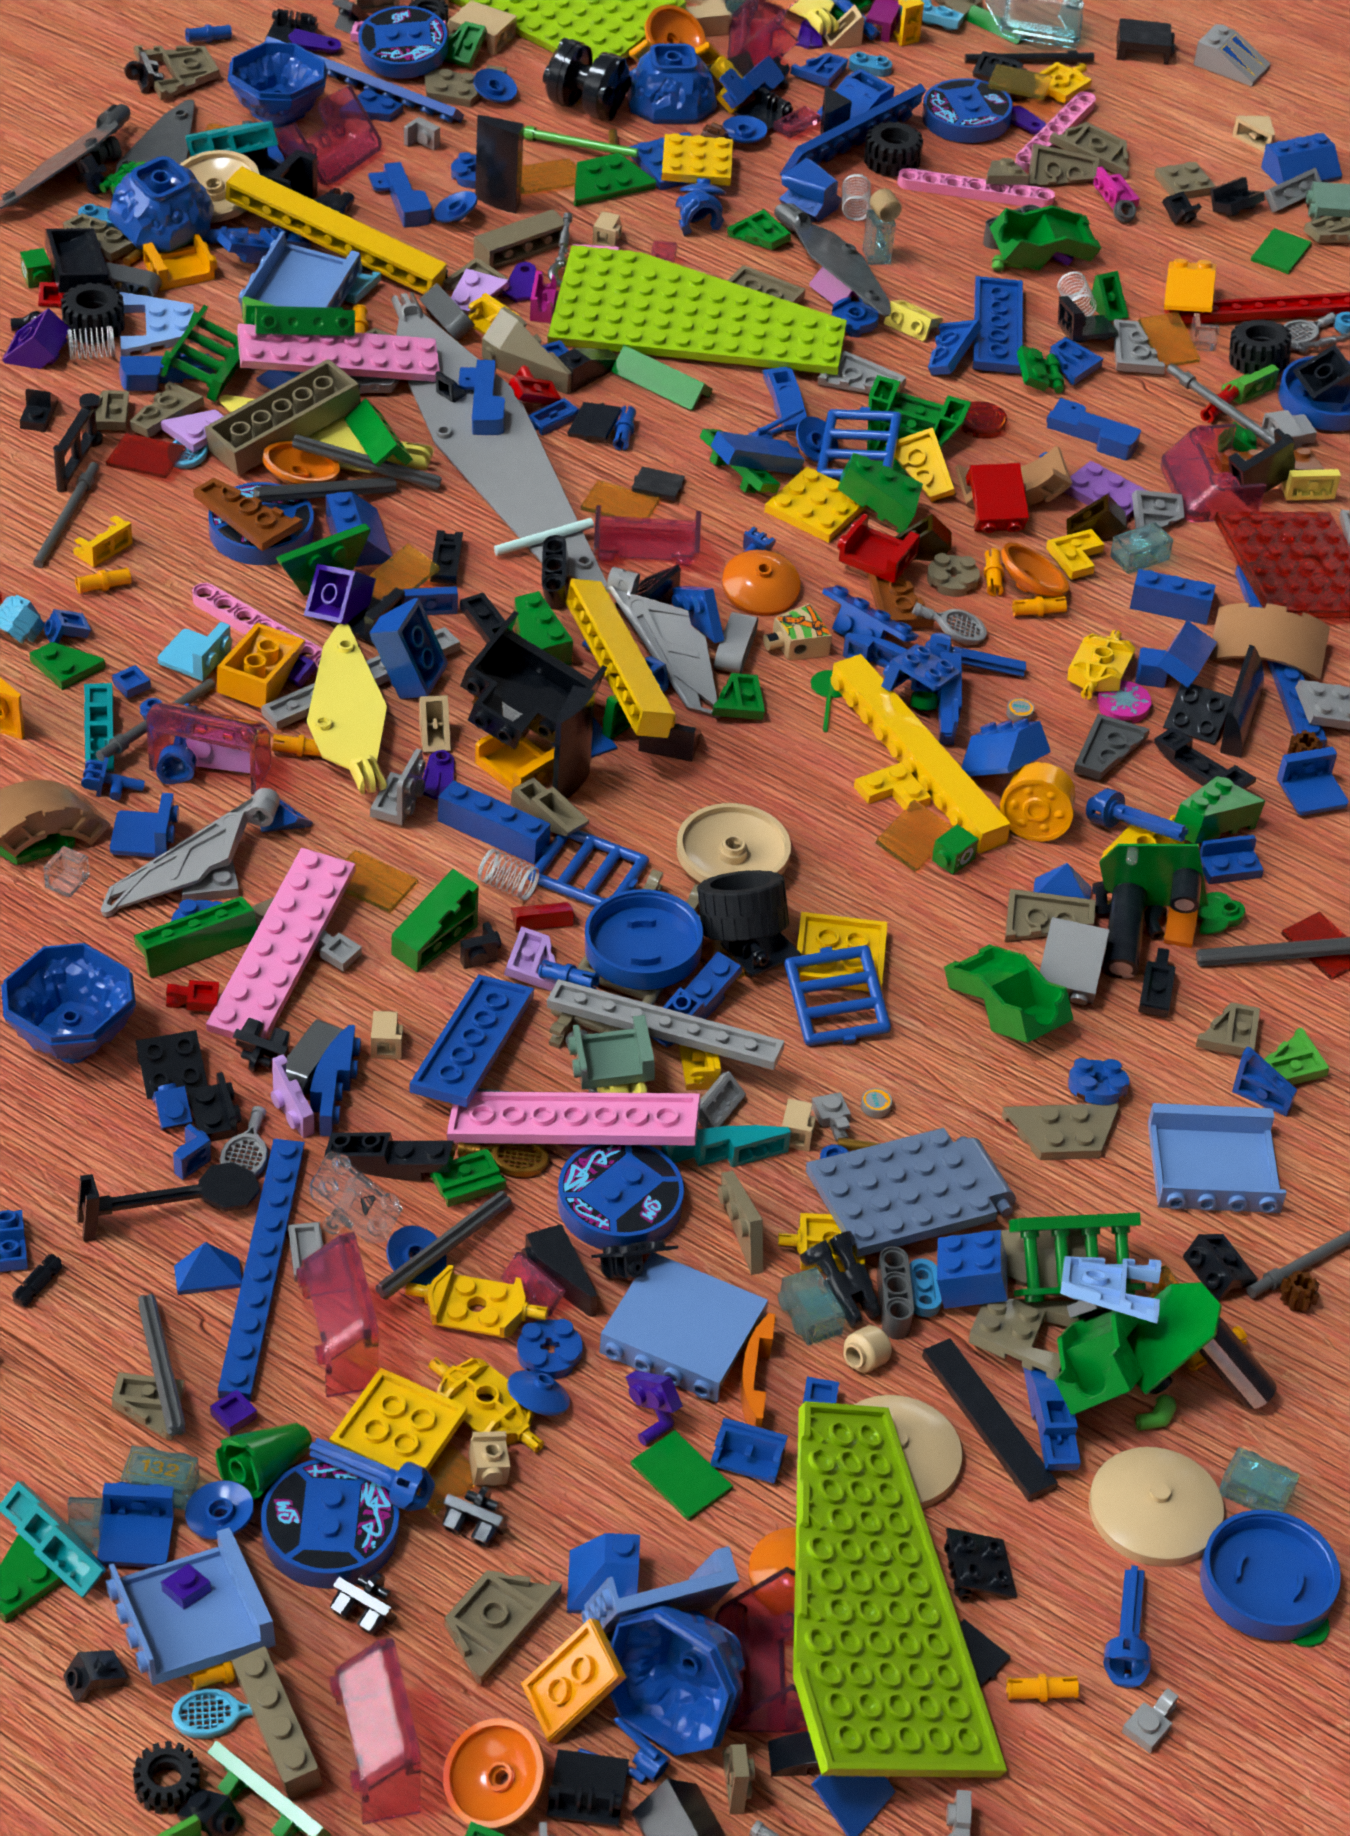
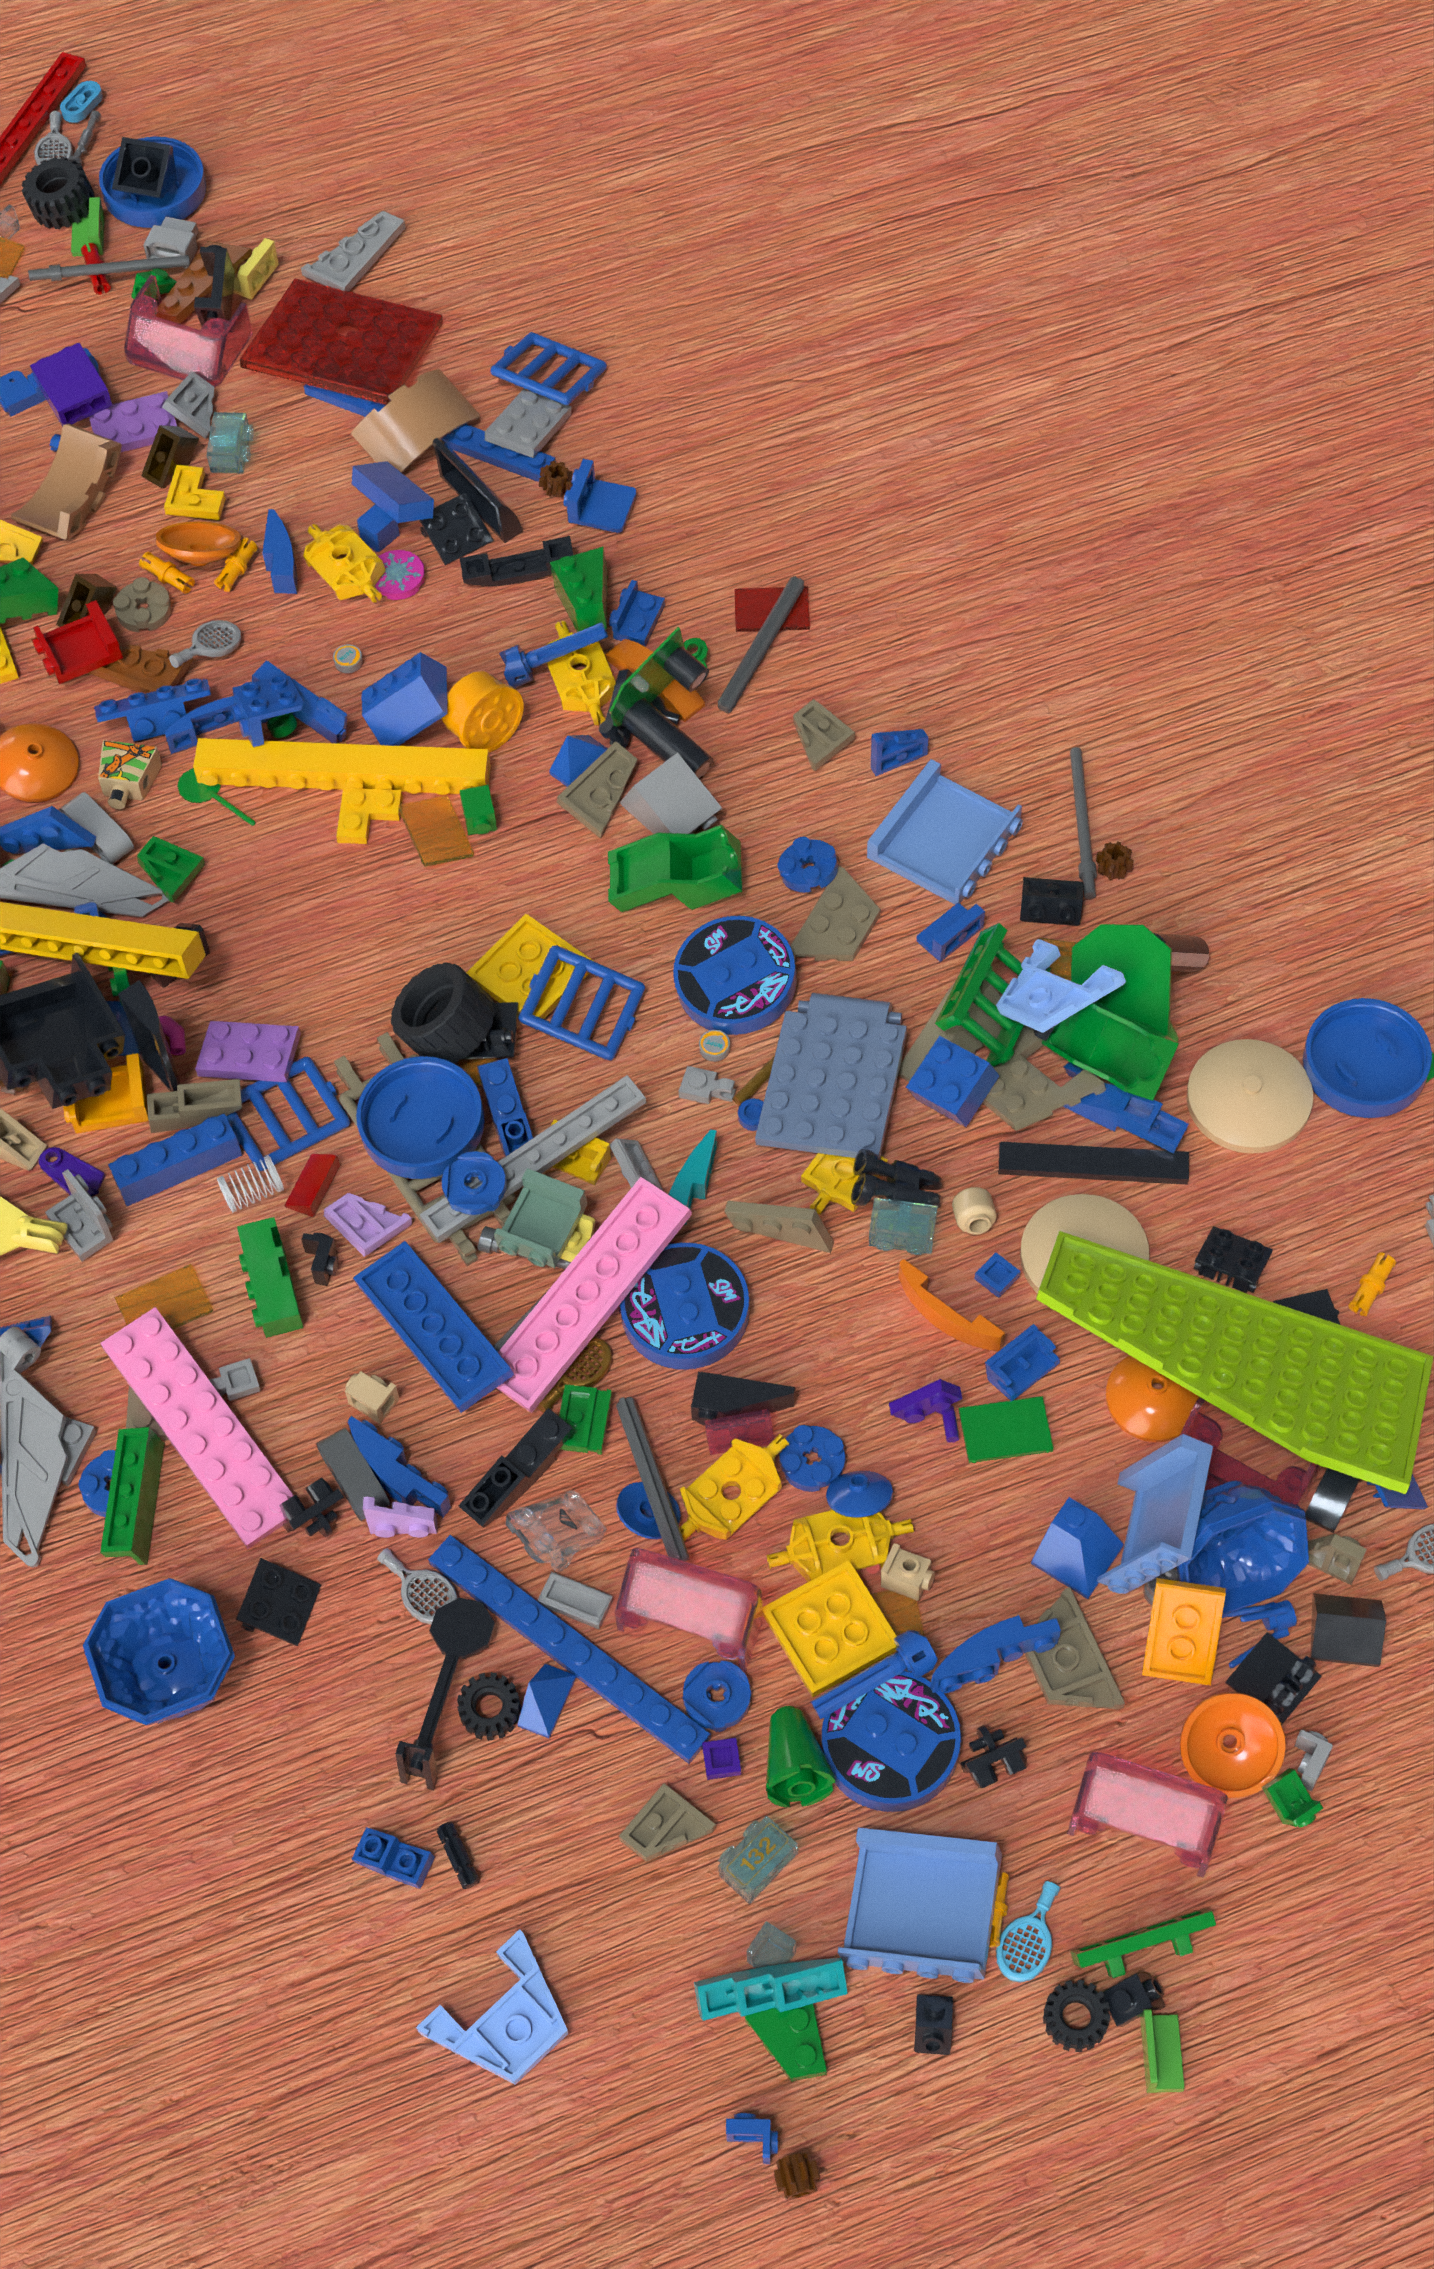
camera: 50 degrees left, 15 degrees up
(136, 1524) = (801, 1907): blue bracket -> none
(161, 1365) = (637, 1793): dark grey axle -> none
(172, 1106) = (329, 1628): blue bracket -> none
(173, 1223) = (489, 1686): none -> black tyre
(186, 1586) = (891, 1897): dark purple plate -> none
(192, 1154) = (398, 1632): blue bracket -> none
(197, 995) = (205, 1533): red plate -> none
(214, 1109) = (357, 1593): black bracket -> none
(215, 1500) = (821, 1809): blue dish -> none
(277, 1723) = (1081, 1894): dark tan brick -> none
(288, 1398) = (715, 1675): none -> blue plate
(446, 1537) = (981, 1654): none -> blue slope
(487, 1522) = (972, 1612): black hips -> none
(568, 973) = (415, 1203): blue pin -> none
(603, 773) = (175, 1033): none -> dark pink arm
(607, 1006) = (479, 1200): none -> blue plate
(622, 820) = (248, 1051): none -> medium lavender plate
(627, 1260) = (769, 1335): black hinge -> none
(682, 1326) = (863, 1337): medium blue panel -> none
(731, 840) = (351, 980): tan dish -> none
(800, 1123) = (699, 1117): tan brick -> none
(895, 1292) = (922, 1141): dark grey beam -> none
(926, 1289) = (937, 1129): dark azure plate -> none
(942, 643) = (242, 669): blue piece -> none
(950, 1080) = (735, 975): none -> brick
(998, 497) = (86, 509): red panel -> none
(1071, 624) = (279, 555): none -> blue slope
(1096, 434) = (71, 384): none -> dark purple brick
(1108, 745) = (441, 620): dark grey wing -> none
(1114, 1203) = (951, 930): none -> blue panel
(1128, 1649) = (1382, 1203): blue piece -> none
(1157, 985) = (734, 755): black hinge -> none
(1172, 596) = (303, 457): blue slope -> none
(1258, 1482) = (1278, 1010): clear light blue brick -> none
(1298, 1059) = (881, 707): bright green wing -> none

